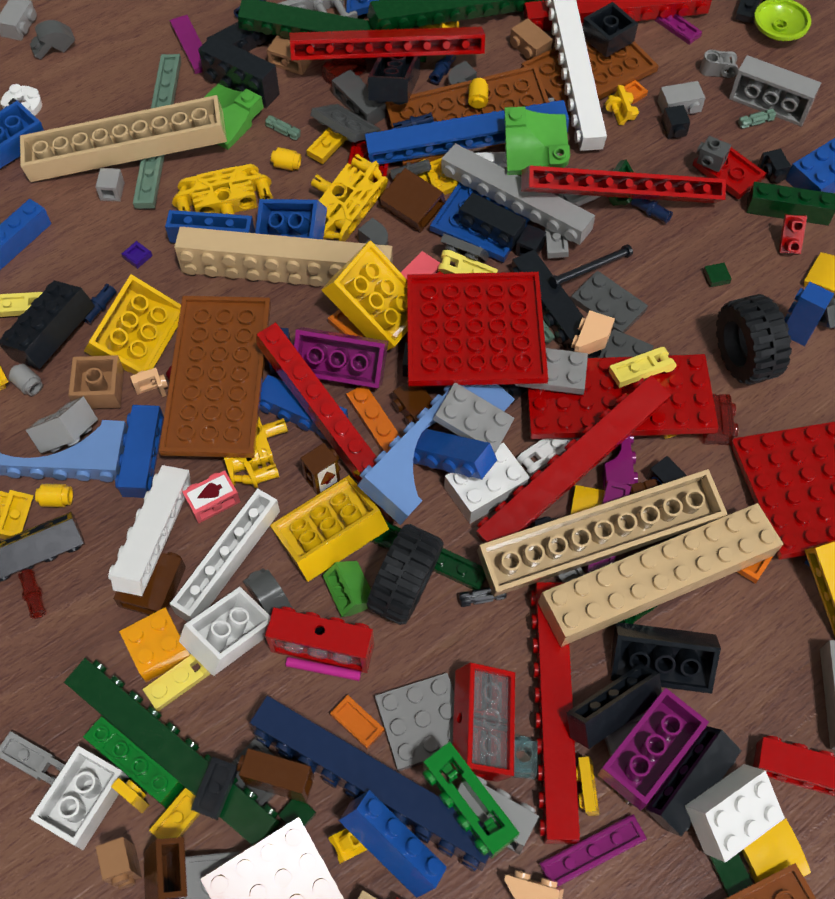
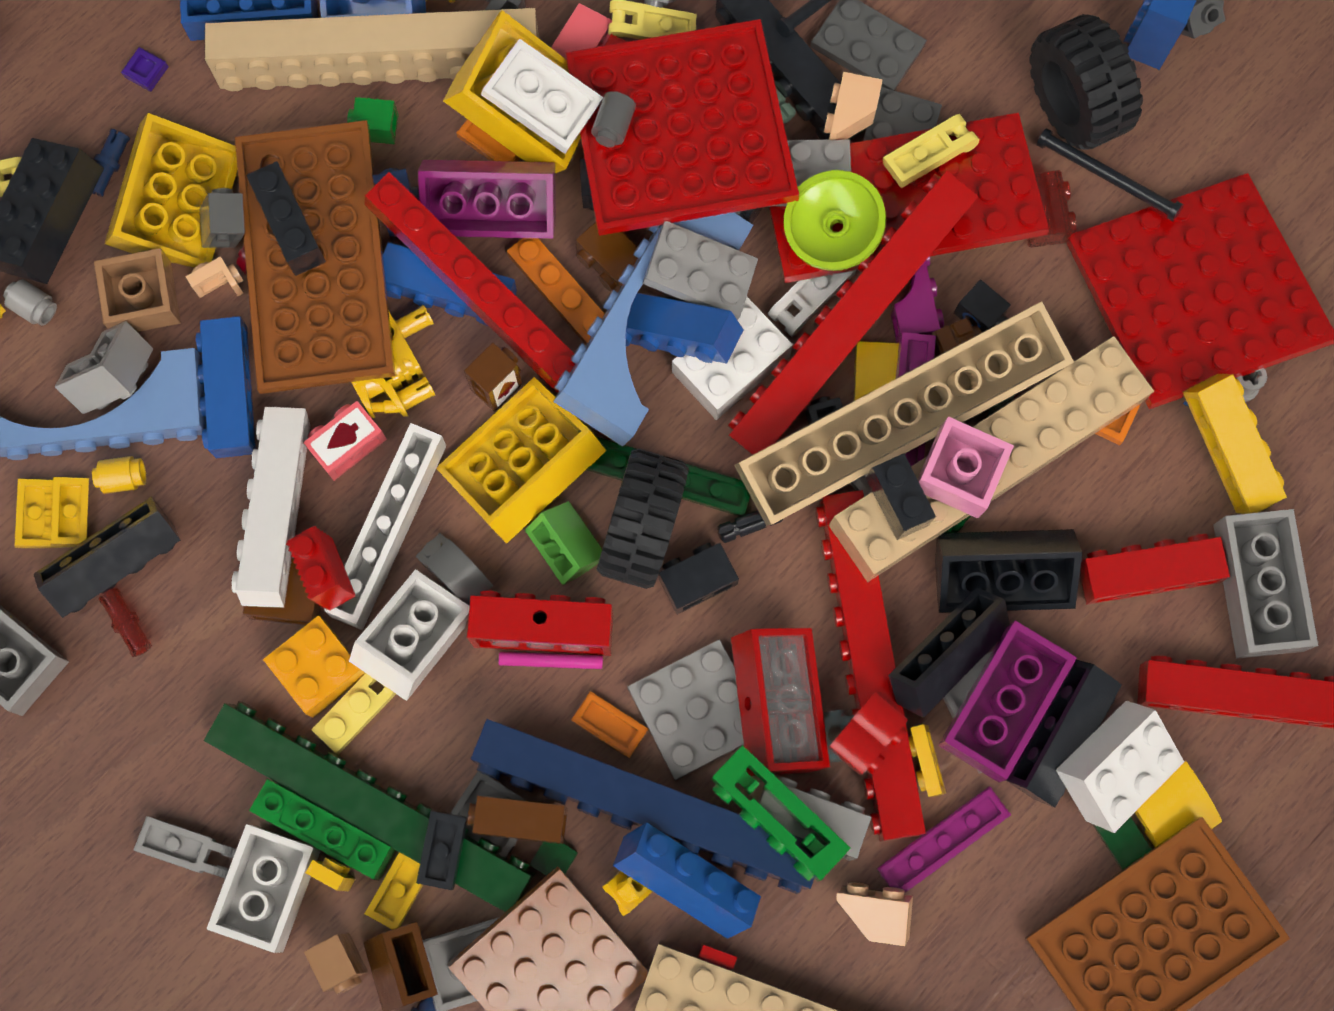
camera: 10 degrees left, 15 degrees up
(162, 344) = (222, 219): none -> dark grey brick
(173, 573) = (320, 568): none -> red brick
(203, 346) = (286, 218): none -> black brick
(280, 302) = (380, 115): none -> green brick
(386, 294) = (542, 96): none -> white plate
(430, 314) = (613, 119): none -> dark grey brick
(439, 626) = (697, 577): none -> black brick
(546, 755) = (869, 734): none -> red brick
(569, 387) = (829, 200): none -> lime dish
(591, 583) = (900, 496): none -> black brick
(639, 569) = (964, 467): none -> bright pink brick
(765, 404) = (1107, 173): none -> black bar
(773, 672) = (1154, 569): none -> red brick

